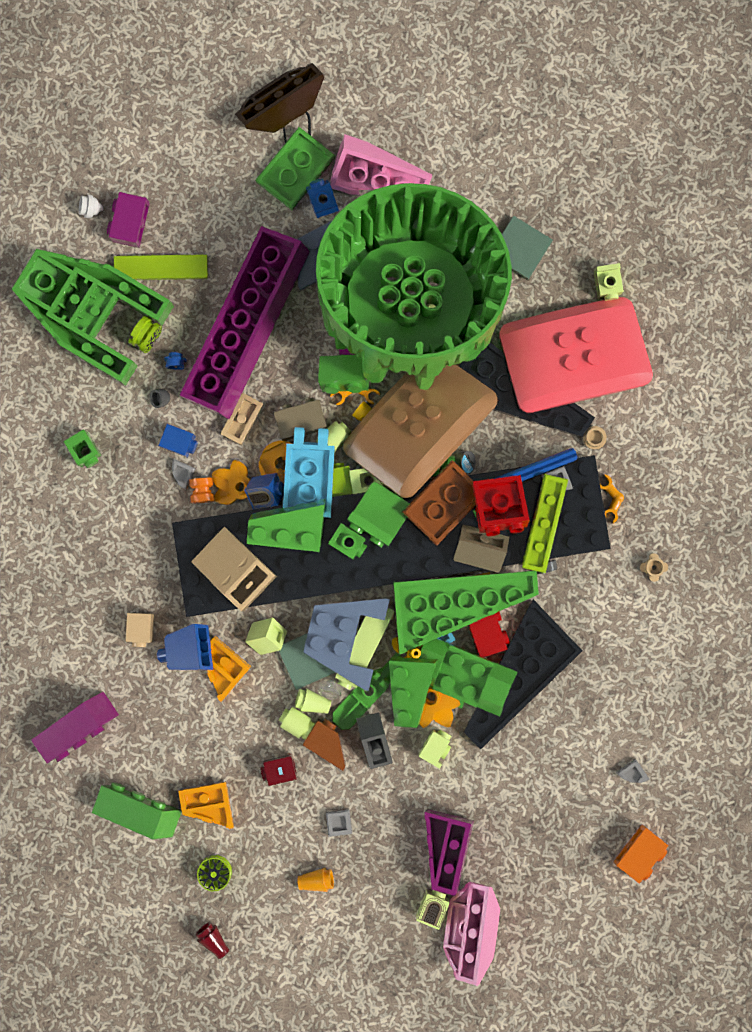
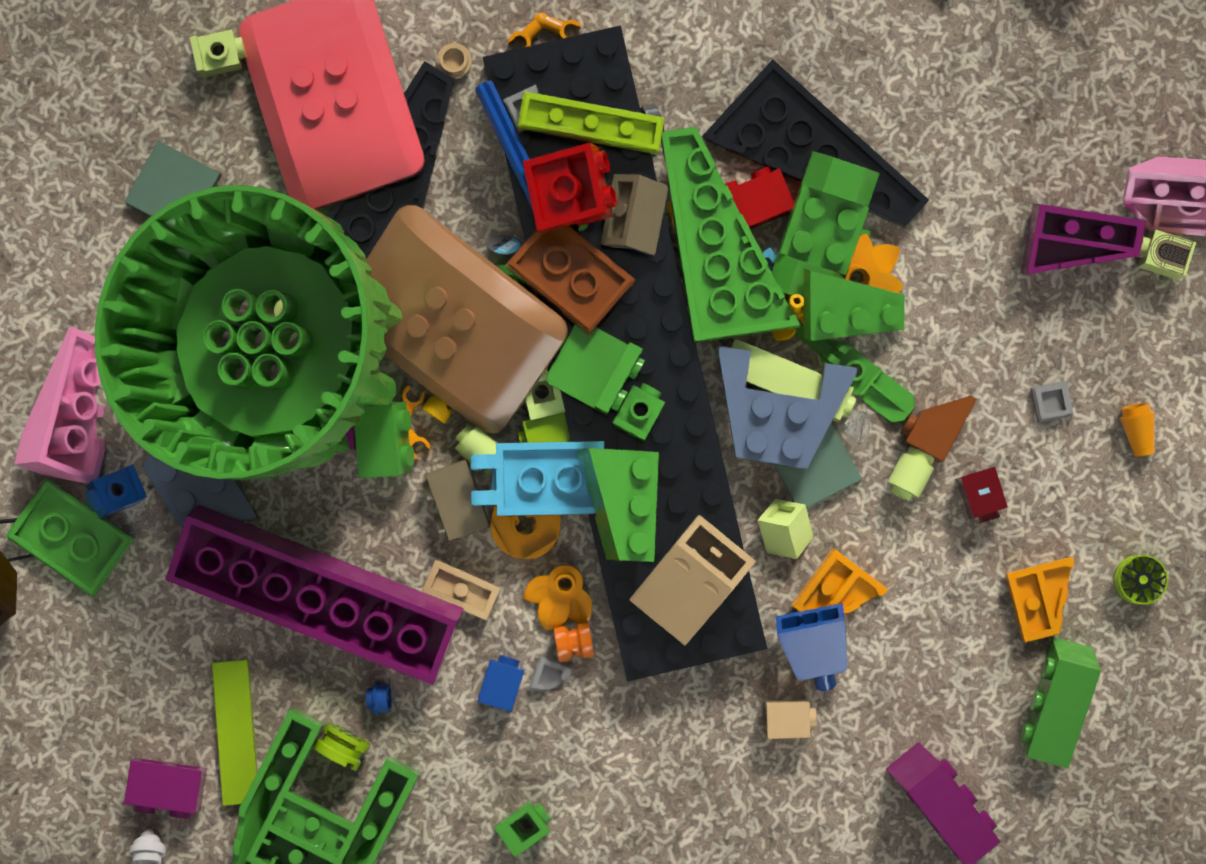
camera: 95 degrees left, 0 degrees up
(159, 398) = (437, 717): dark grey hinge -> none
(265, 491) = (569, 545): blue brick -> none
(312, 702) = (878, 454): yellowish green cone -> none
(374, 740) = (927, 356): dark grey slope -> none
(436, 747) = (931, 265): yellowish green brick -> none

